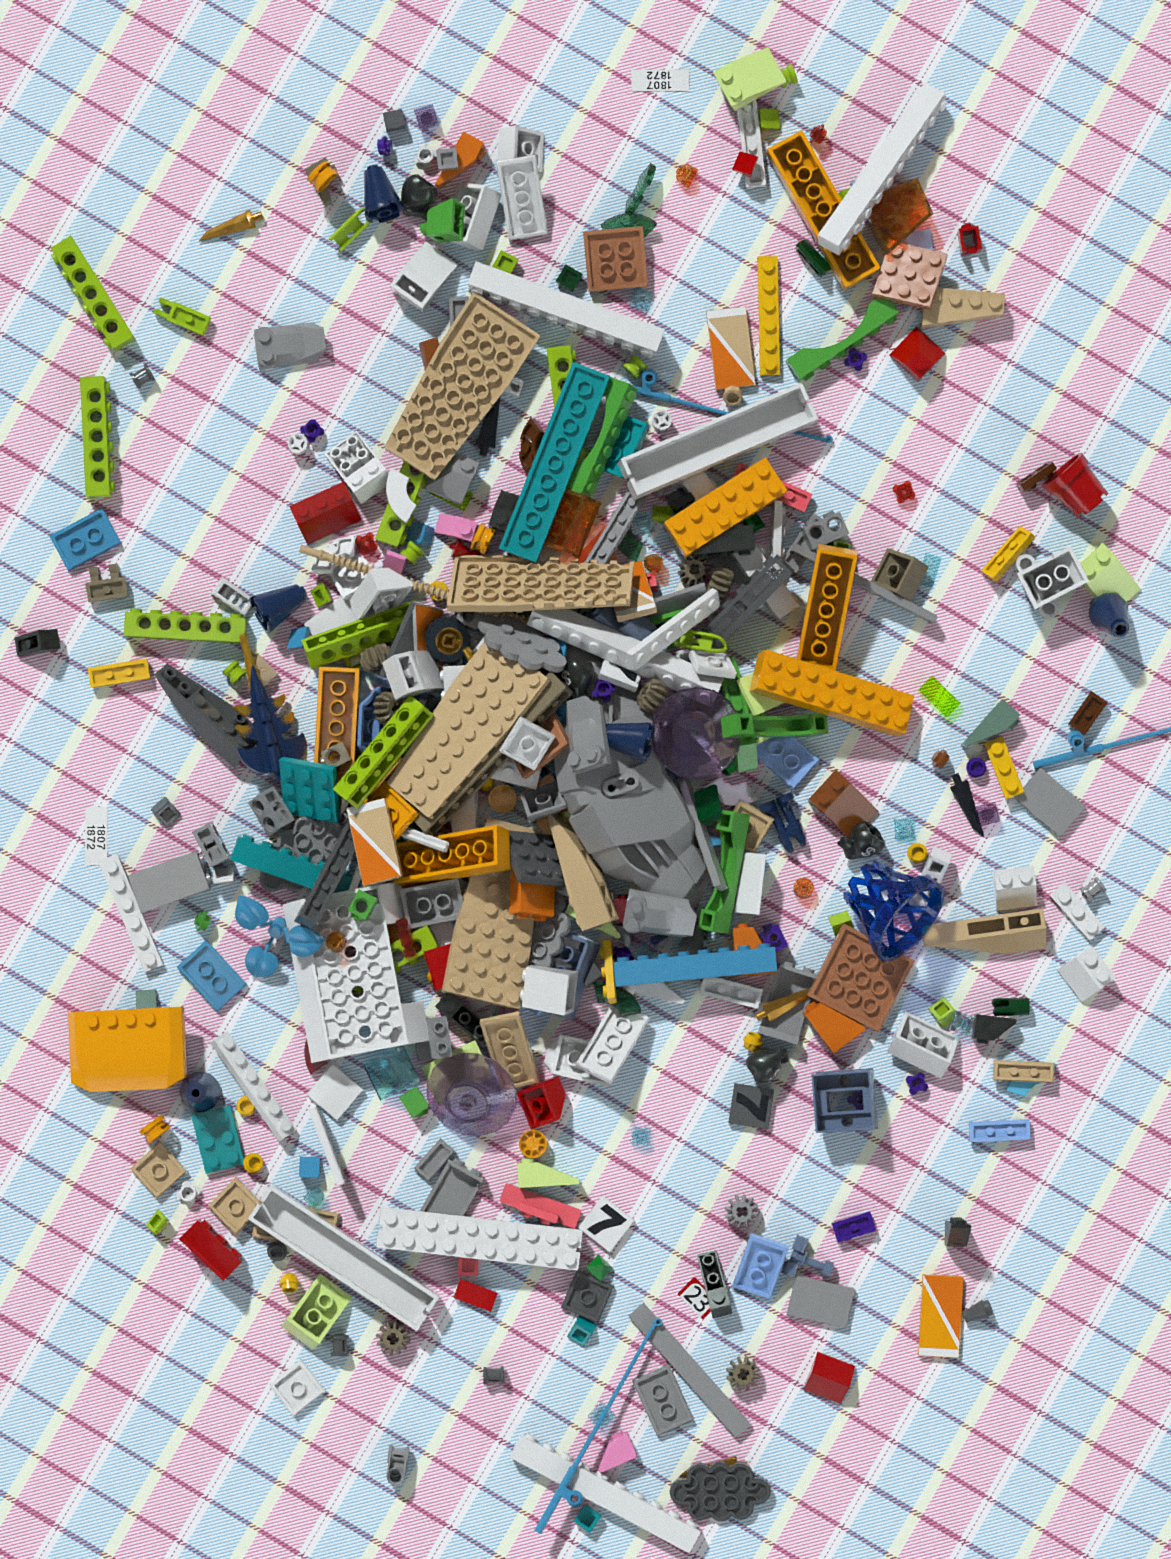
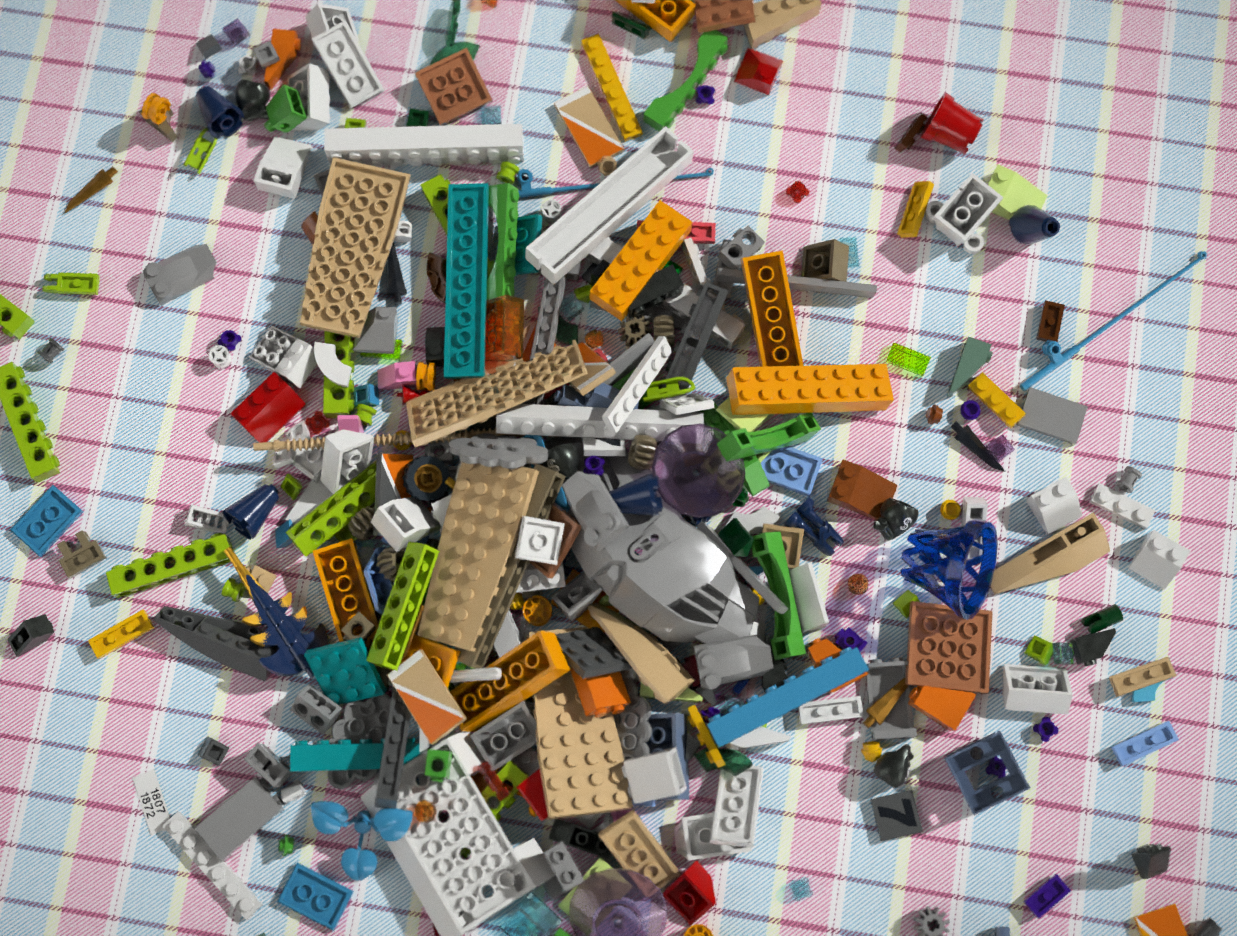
camera: 15 degrees left, 10 degrees down
(904, 828) = (928, 492): clear light blue slope -> none

